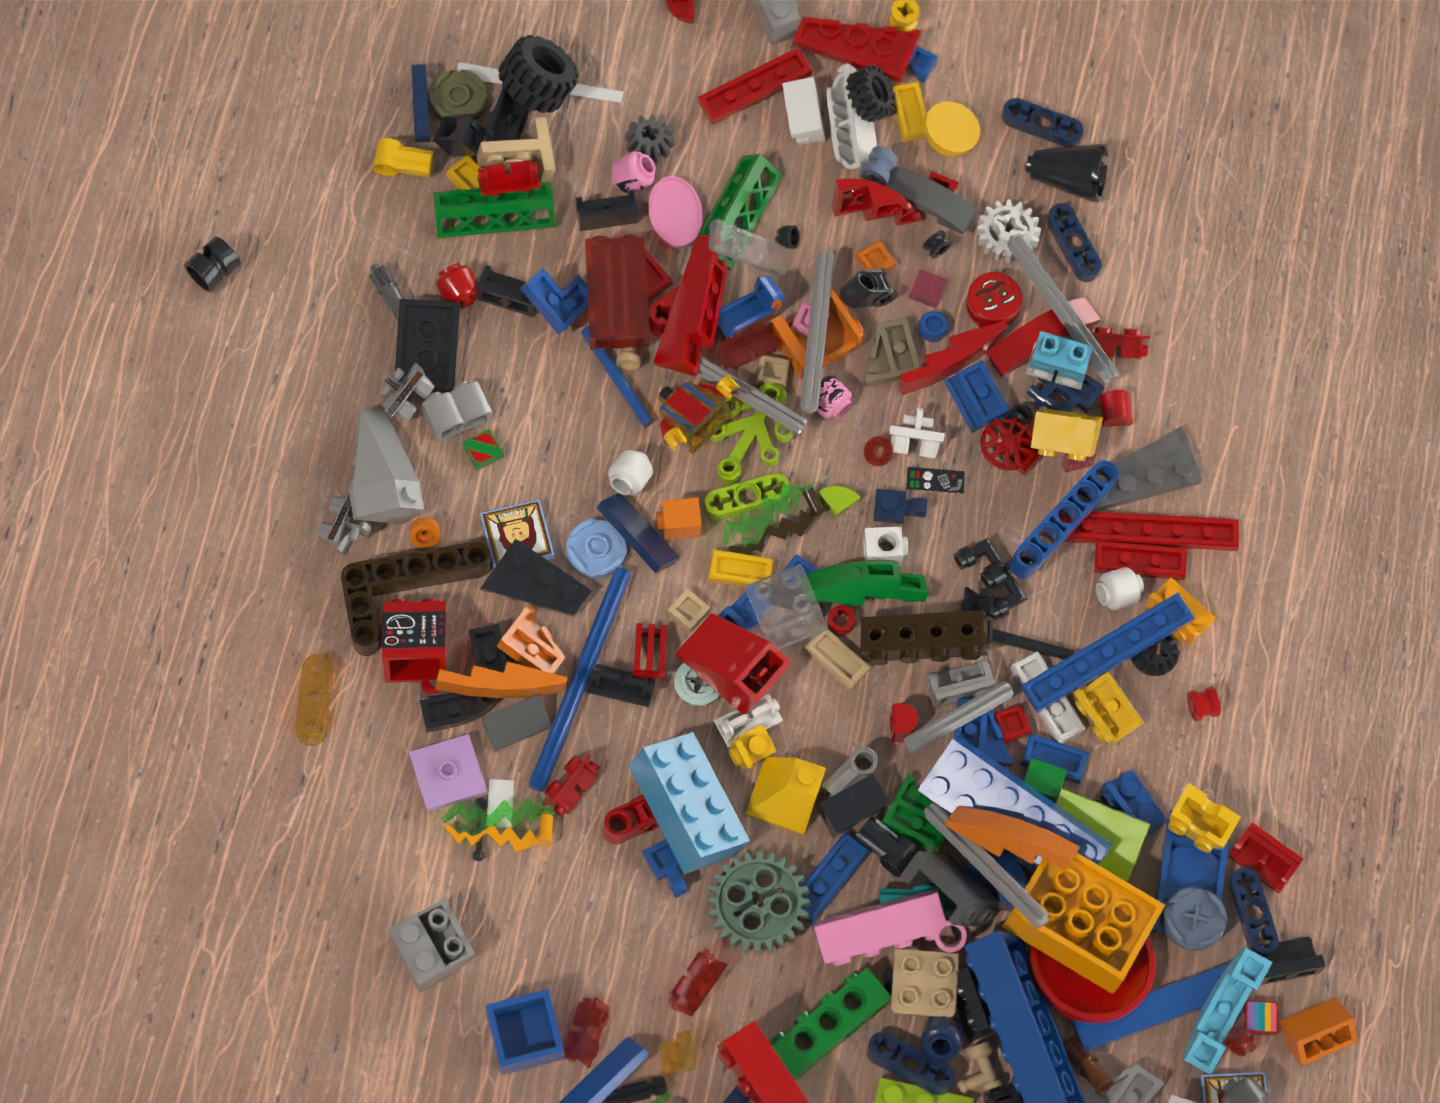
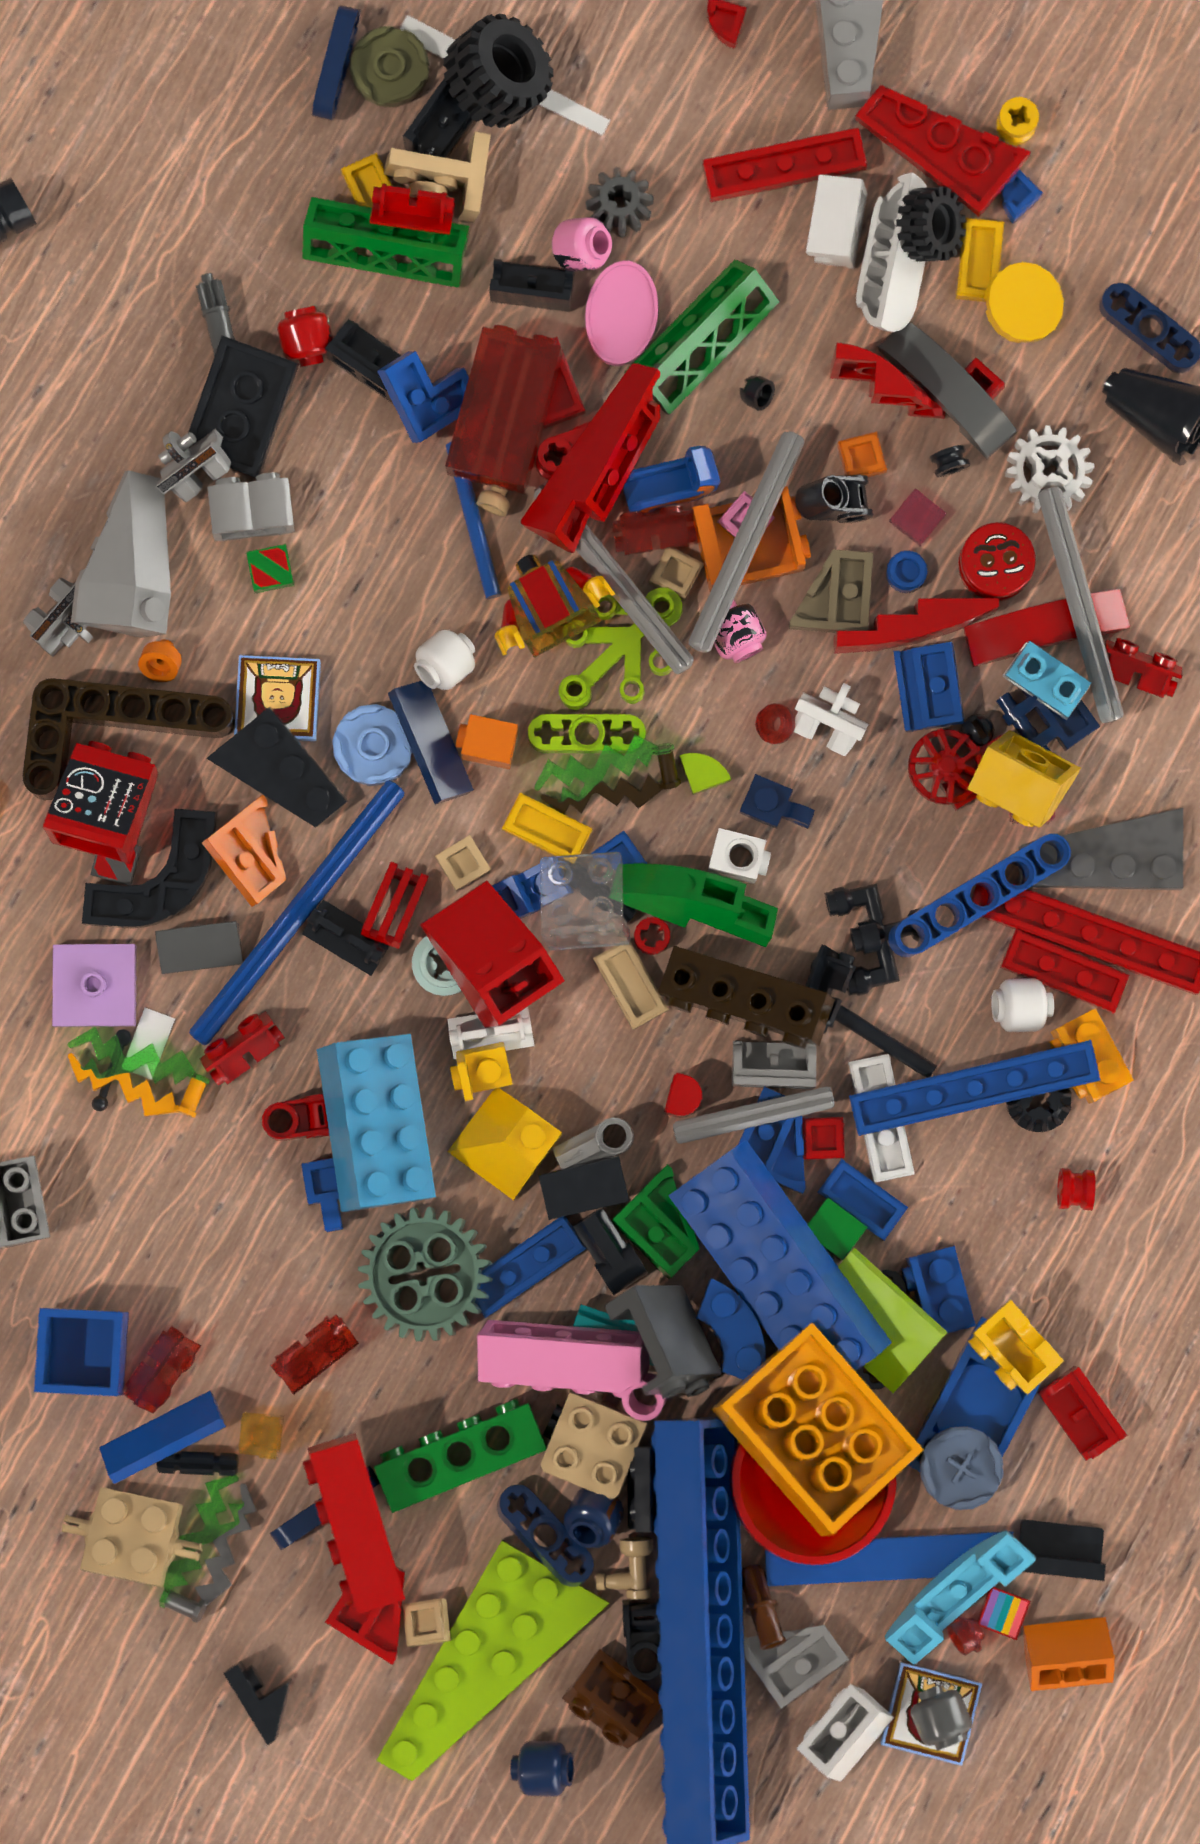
camera: 20 degrees right, 15 degrees up
(395, 158) = (278, 131): yellow piece -> none
(459, 135) = (371, 126): black brick -> none
(513, 683) = (205, 898): orange slope -> none
(747, 248) = (695, 397): clear tile -> none
(879, 165) = (905, 333): sand blue wheel -> none
(935, 480) = (838, 782): black sticker -> none
(988, 868) = (715, 1330): light grey axle -> none
(1002, 832) = (767, 1308): orange slope -> none
(1074, 229) = (1146, 537): dark blue beam -> none
(1108, 709) = (950, 1159): yellow bracket -> none
(1115, 408) = (1105, 757): red brick -> none
(1238, 892) = (1054, 1447): dark blue beam -> none

